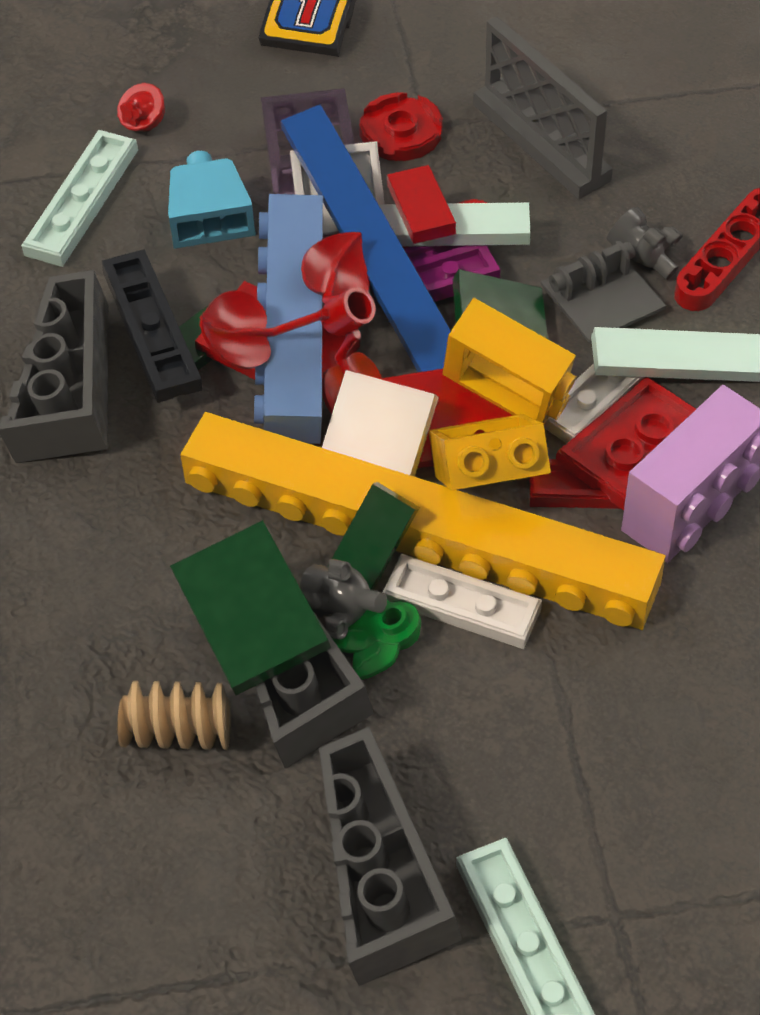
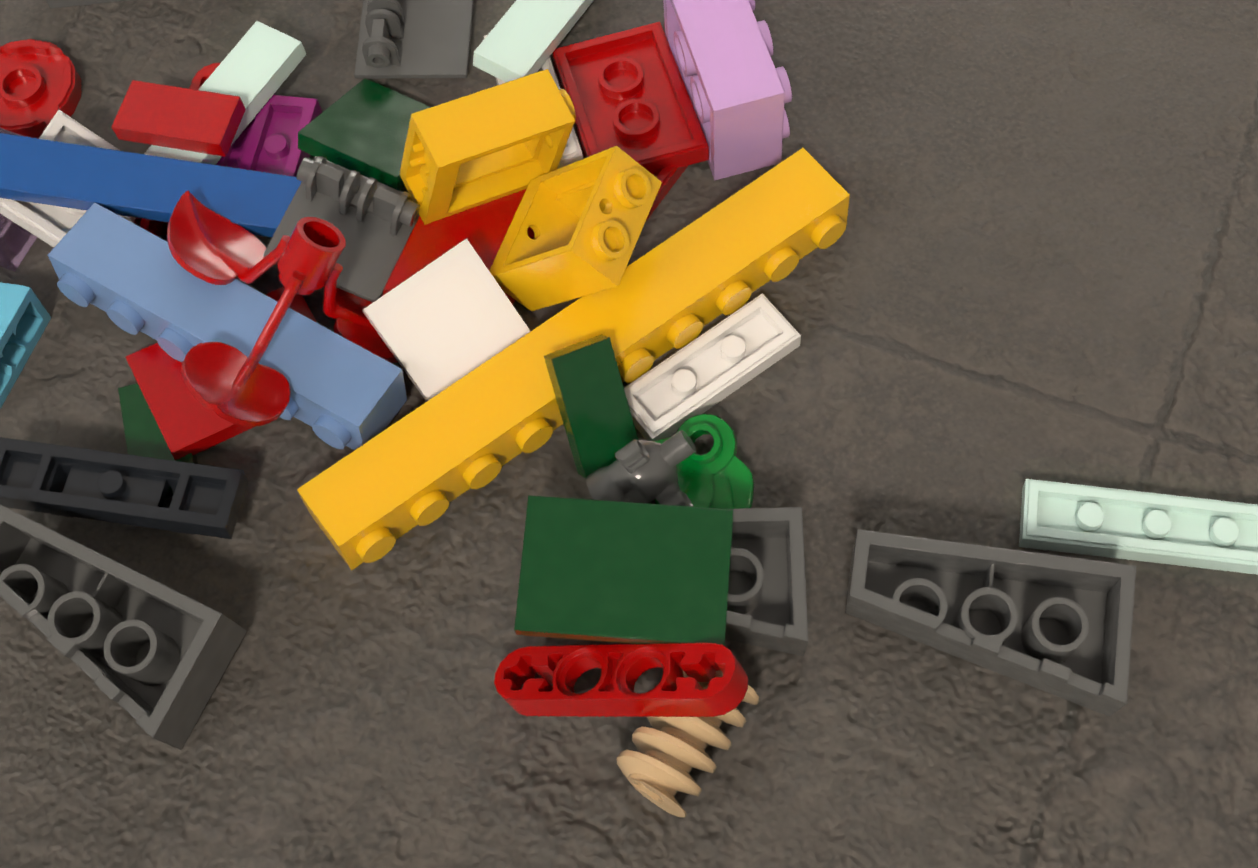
camera: 55 degrees left, 10 degrees up
(183, 653) = (620, 670): none -> red beam
(407, 331) = (367, 213): none -> dark grey hinge

